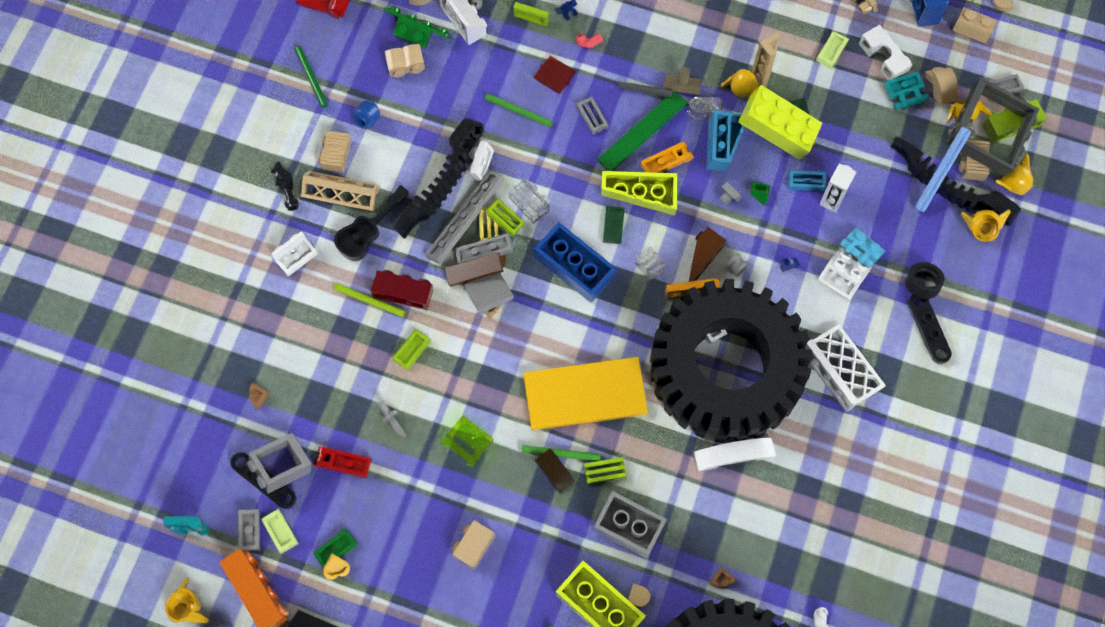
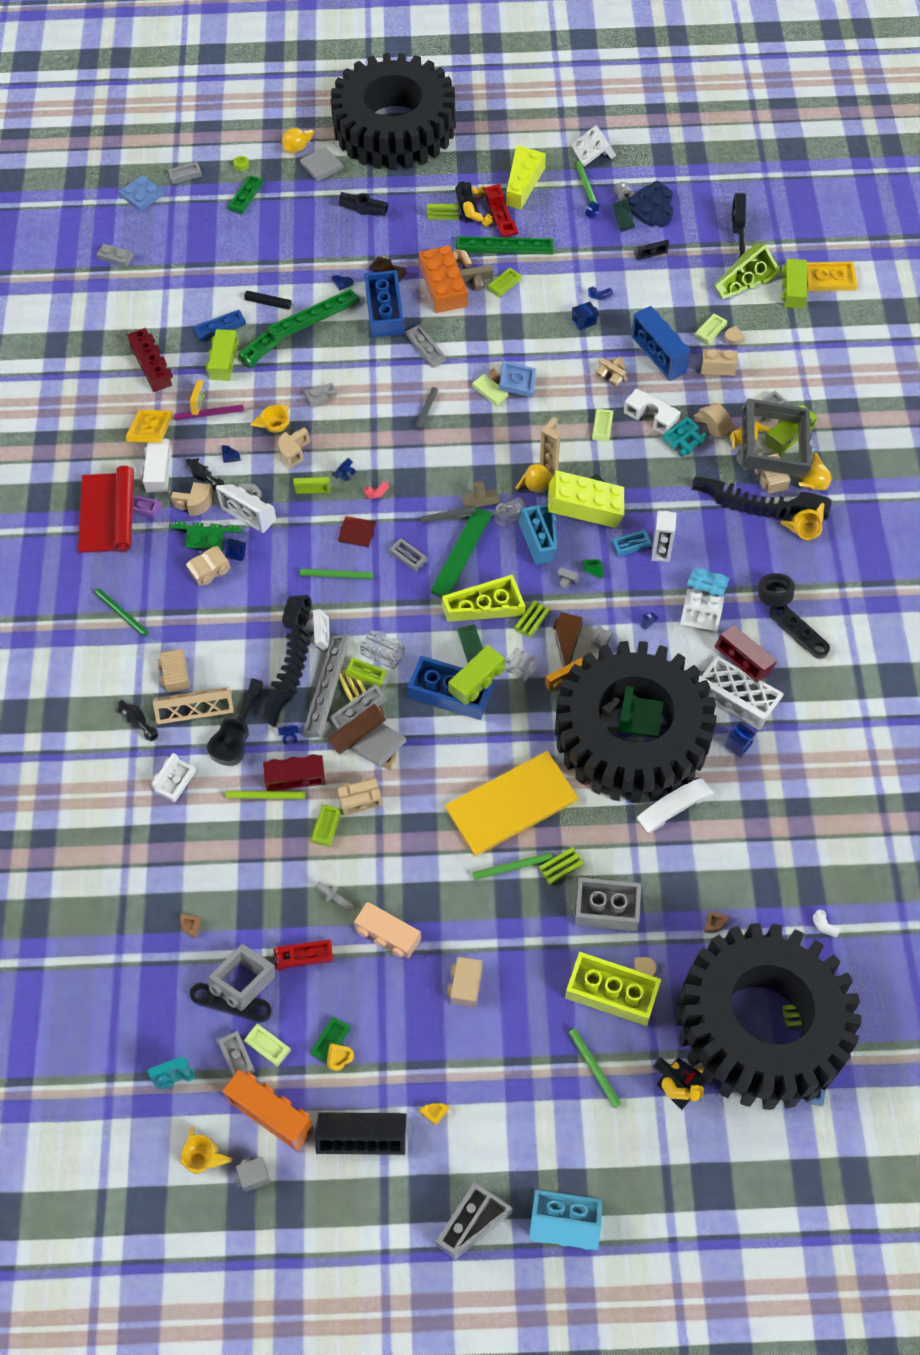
camera: 20 degrees left, 10 degrees down
(366, 114) = (191, 626): blue head -> none
(413, 247) = (289, 731): none -> clear blue tile
(423, 470) = (387, 931): none -> light nougat brick
(435, 53) = (235, 549): none -> clear blue tile
(451, 334) = (360, 796): none -> tan brick
(470, 435) = (420, 882): clear neon green plate -> none
(554, 470) = (514, 883): dark brown slope -> none
(600, 262) = (477, 675): none -> lime brick
(667, 159) = (496, 567): light orange plate -> none
(692, 213) = (539, 608): none -> lime tile
(735, 359) = (640, 715): none -> dark green bracket
(822, 416) = (740, 739): none -> clear blue brick
(866, 333) = (745, 653): none -> brick
(943, 169) = (749, 488): light blue axle -> none

